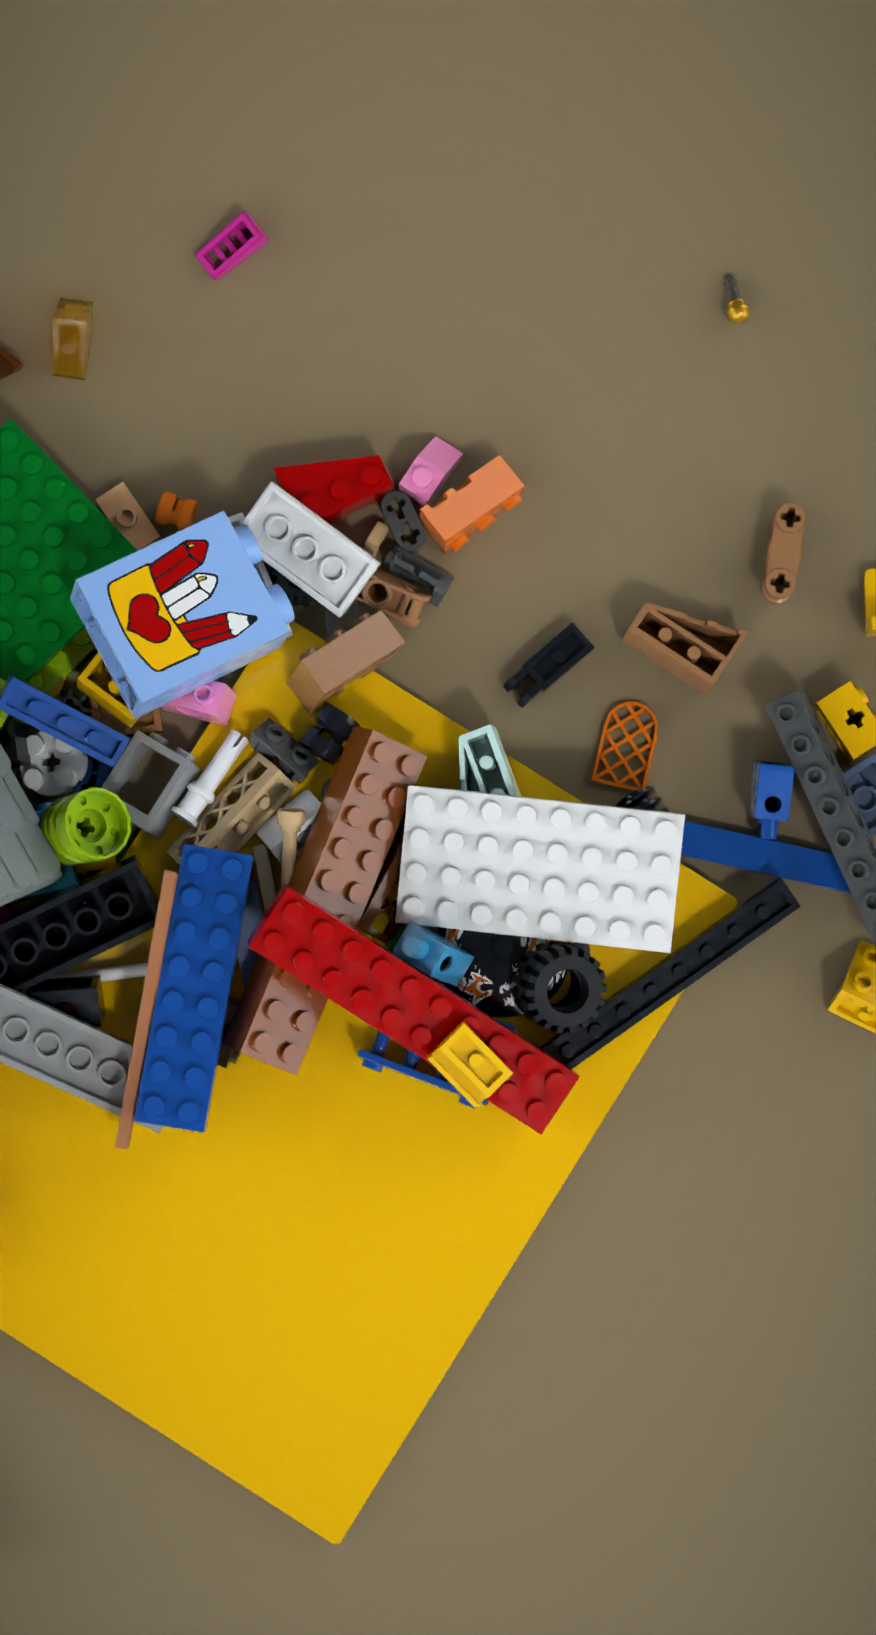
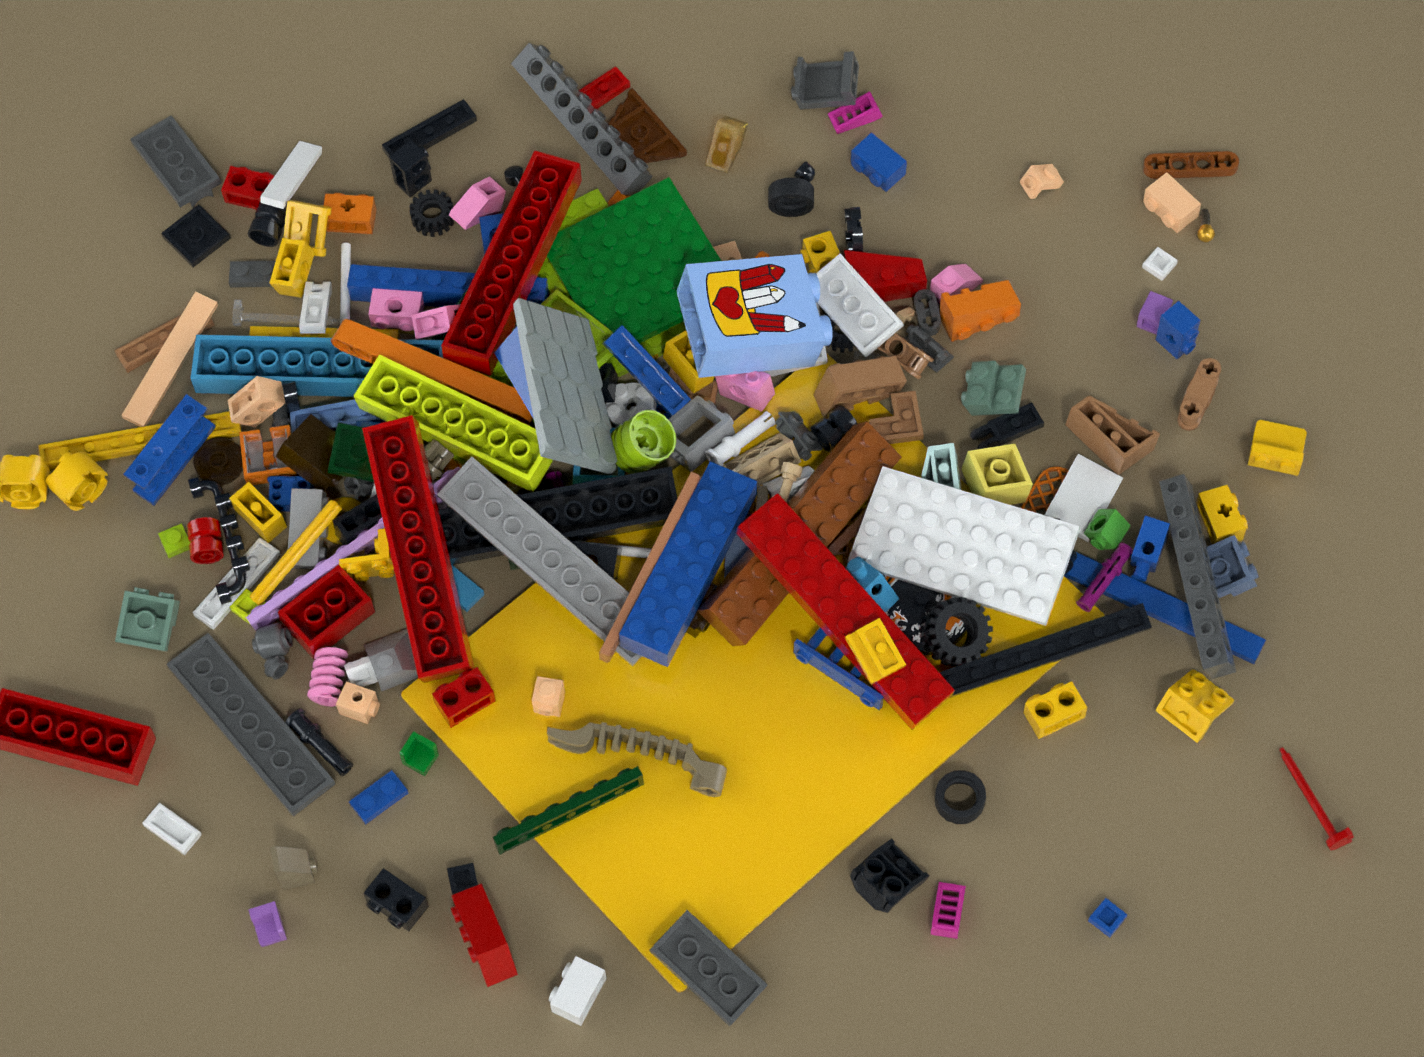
camera: 20 degrees right, 20 degrees down
(28, 1473) = (462, 877): none -> black plate
(65, 1209) = (548, 696): none -> light nougat brick
(72, 1541) = (484, 935): none -> red wedge
(122, 1361) = (577, 805): none -> dark green plate
(181, 211) = (826, 83): none -> dark grey panel
(181, 403) = (791, 187): none -> black tyre
(190, 355) = (805, 172): none -> black hinge
(212, 1580) = (577, 990): none -> white brick
(254, 480) = (821, 242): none -> yellow brick
(278, 434) = (854, 231): none -> black plate
(282, 316) = (878, 162): none -> blue brick
(294, 1261) = (707, 776): none -> dark tan piece
(364, 1510) = (708, 968): none -> dark grey piece
(417, 701) = (906, 420): none -> medium nougat plate
(504, 285) = (1040, 178): none -> light nougat bracket
(518, 616) = (993, 388): none -> sand green plate
(553, 1327) = (886, 877): none -> black slope
(554, 746) = (997, 474): none -> light yellow brick
(637, 1376) = (942, 929): none -> dark pink slope
(639, 1206) = (960, 777): none -> black tyre
(669, 739) = (1083, 493): none -> white tile
(683, 278) = (1171, 203): none -> light nougat brick
(687, 370) = (1159, 263): none -> white tile
(693, 206) = (1190, 160): none -> dark orange beam
(699, 449) = (1151, 312): none -> medium lavender panel
(709, 1053) = (1059, 715): none -> yellow brick
(711, 781) = (1107, 529): none -> bright green brick
(725, 849) = (1121, 555): none -> magenta pin
(738, 473) = (1178, 330): none -> blue brick
(834, 1305) = (1107, 917): none -> blue plate

